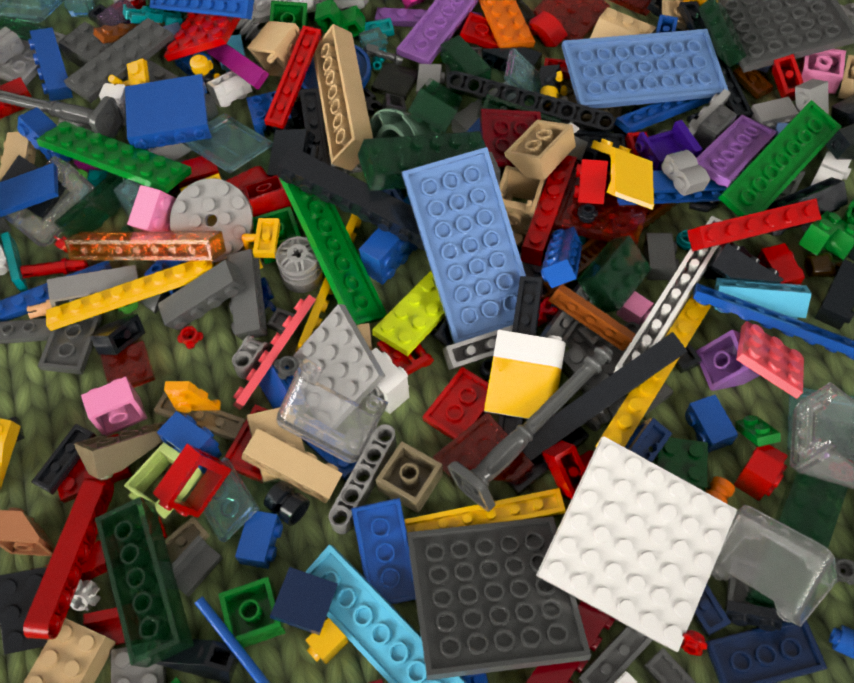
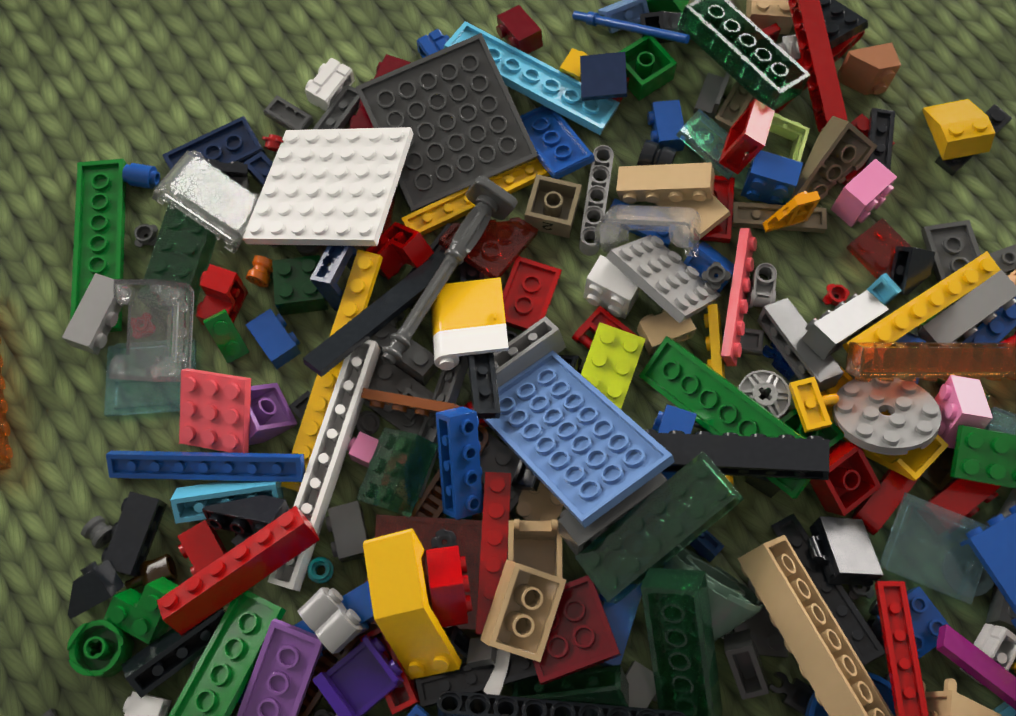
camera: 160 degrees right, 10 degrees up
(148, 327) = (884, 289): none -> medium azure tile

